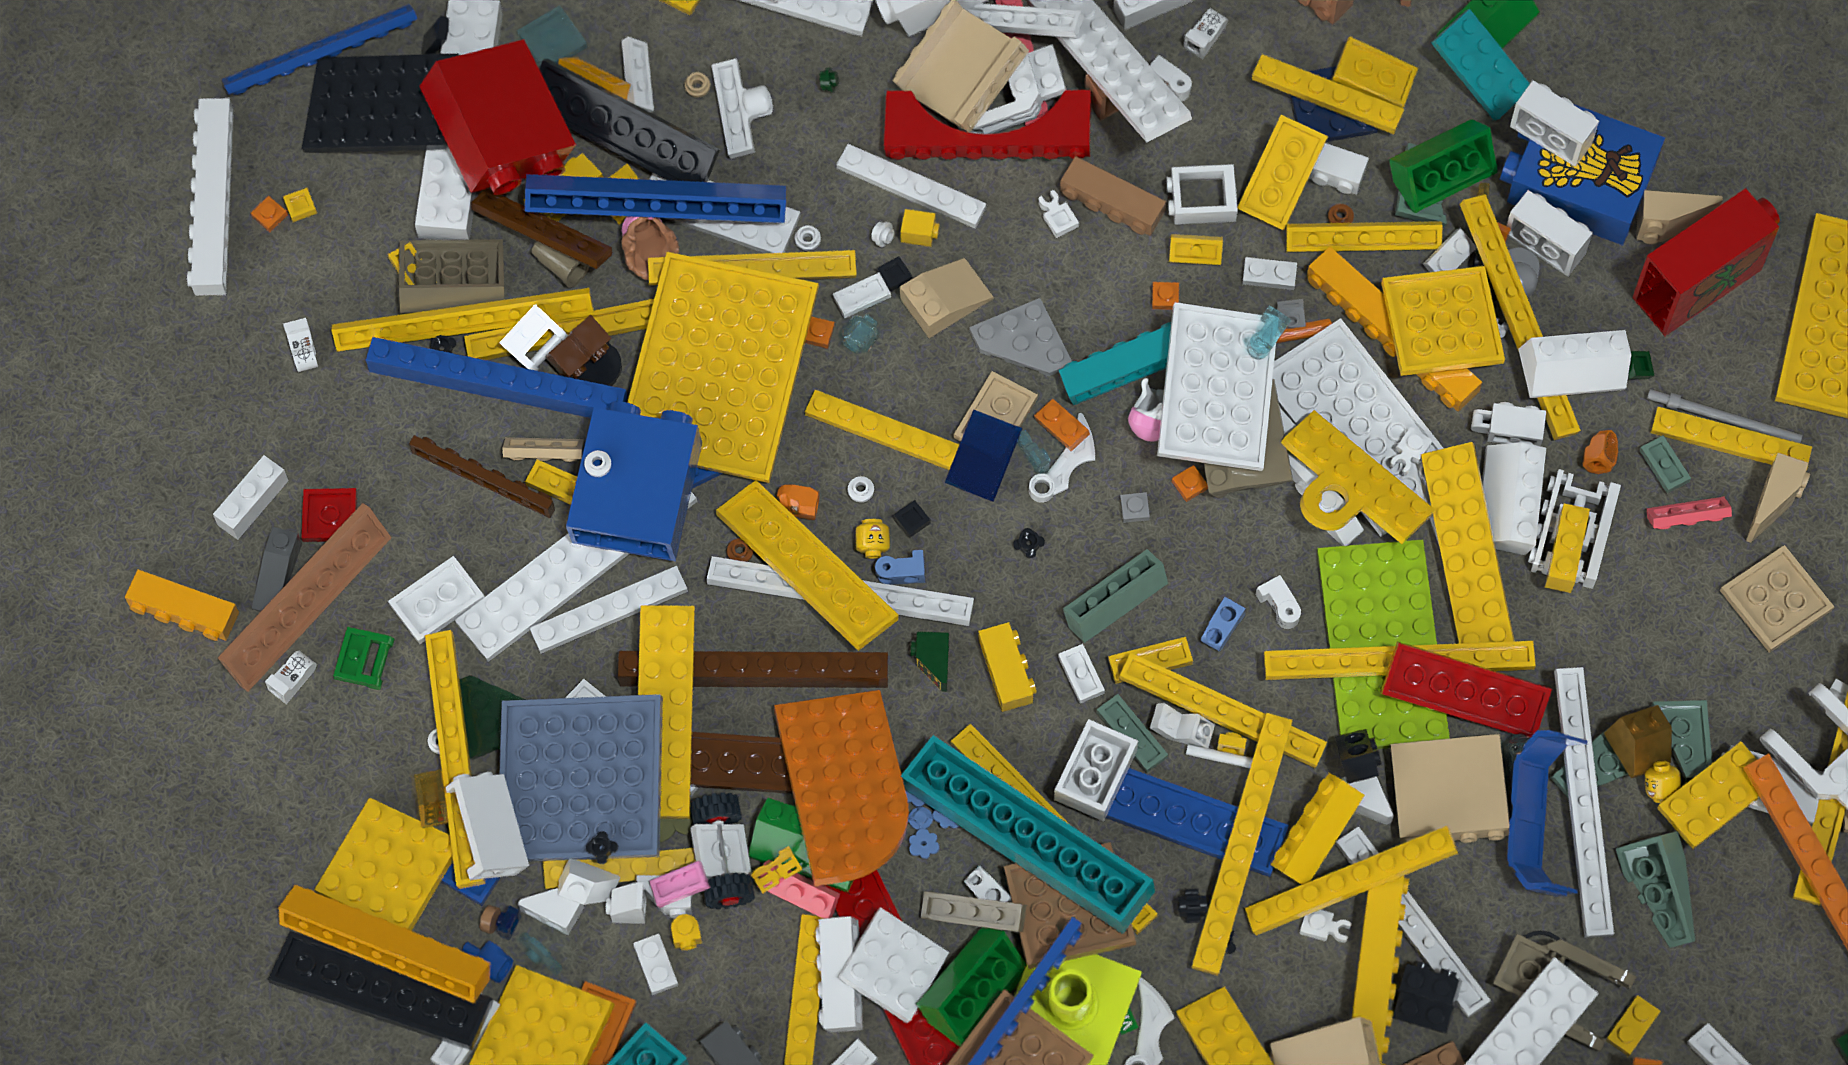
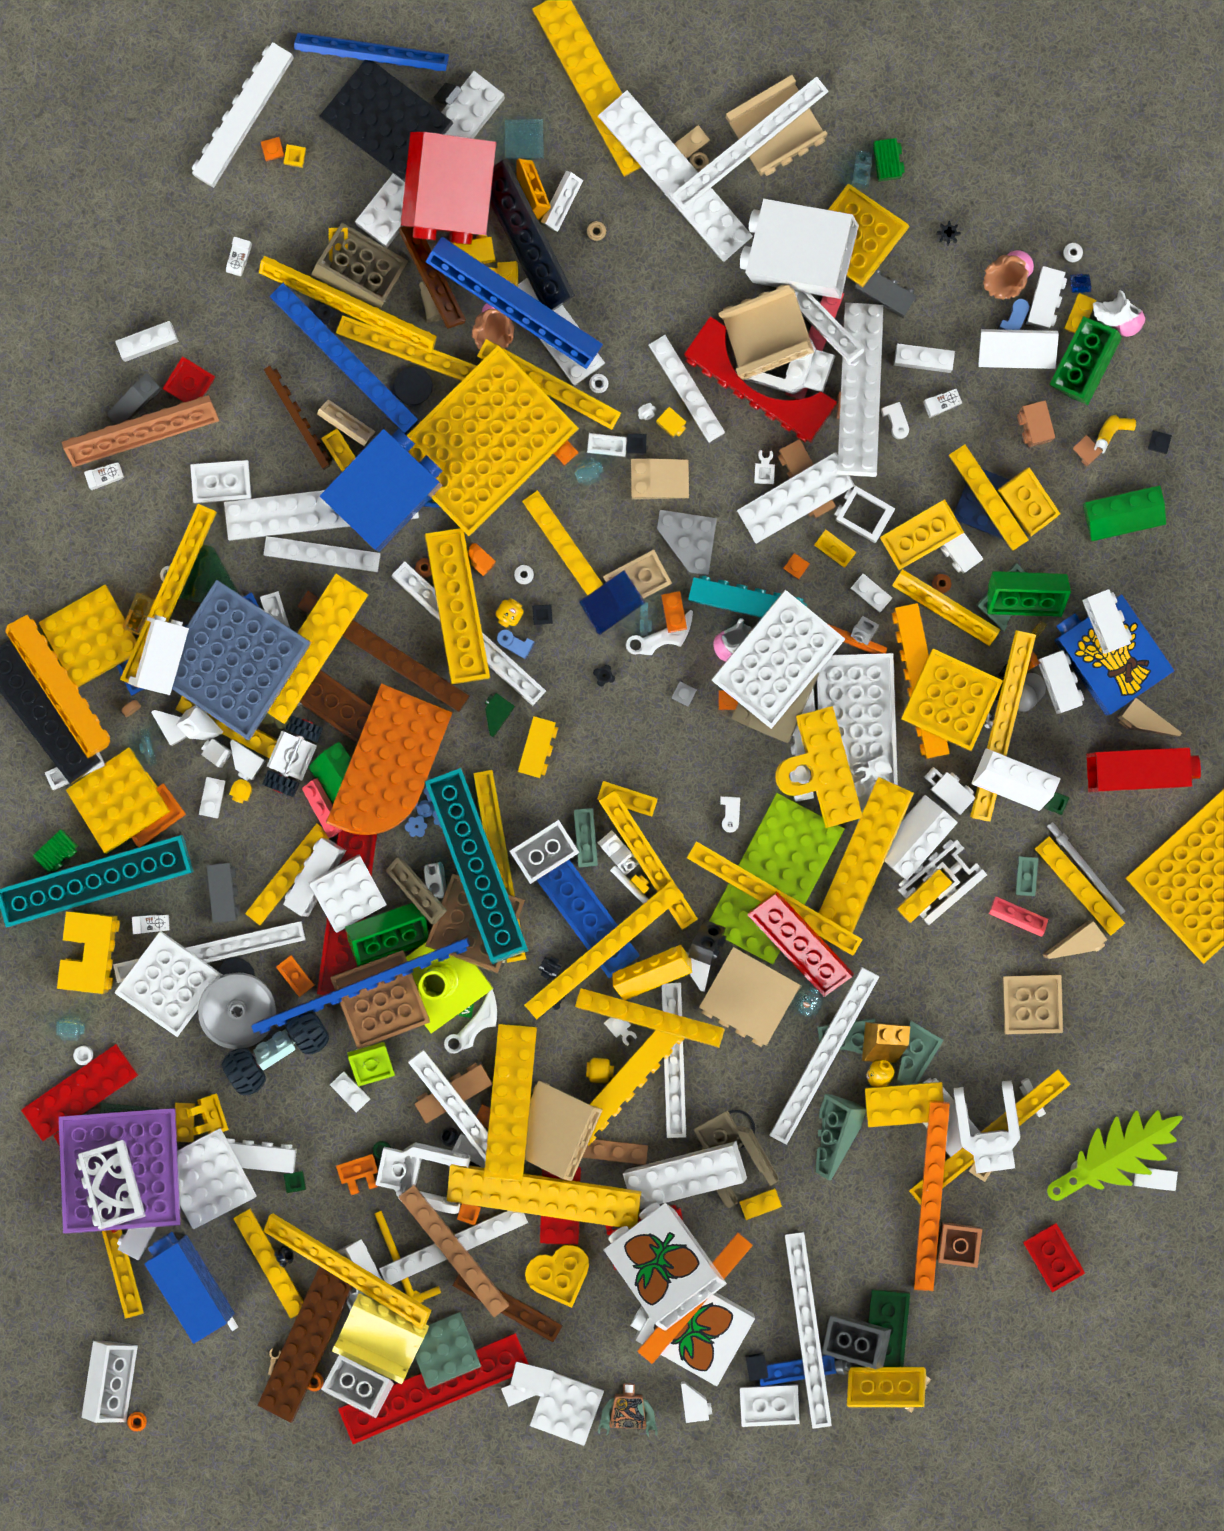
camera: 30 degrees right, 20 degrees up
(181, 605) = (64, 386): light orange brick -> none
(355, 654) = (149, 487): green plate -> none
(499, 961) = (117, 733): blue piece -> none
(508, 922) = (139, 717): clear blue plate -> none
(527, 333) = (379, 342): white plate -> none
(583, 344) = (405, 373): reddish brown brick -> none
(594, 847) = (214, 719): black plate -> none
(598, 471) = (368, 469): white plate -> none
(679, 884) = (252, 763): bright pink plate -> none
(739, 107) = (612, 265): white plate -> none
(782, 870) = (319, 792): yellow piece -> none
(828, 79) = (681, 282): dark green plate -> none
(1081, 673) = (580, 780): white plate -> none
(1114, 218) = (794, 498): none -> white plate
(1115, 595) = (632, 746): sand green brick -> none
(1223, 624) = (685, 804): medium blue leg -> none
(1263, 341) = (830, 648): clear light blue leg -> none
(1334, 987) = (599, 1070): none -> yellow head
(1427, 997) = (650, 1111): black plate -> none
(1450, 252) = (990, 654): white plate -> none
(1481, 64) = (1099, 541): teal plate -> none
(1529, 810) = (782, 1047): blue windscreen -> none
(1601, 453) = (993, 844): orange rock -> none

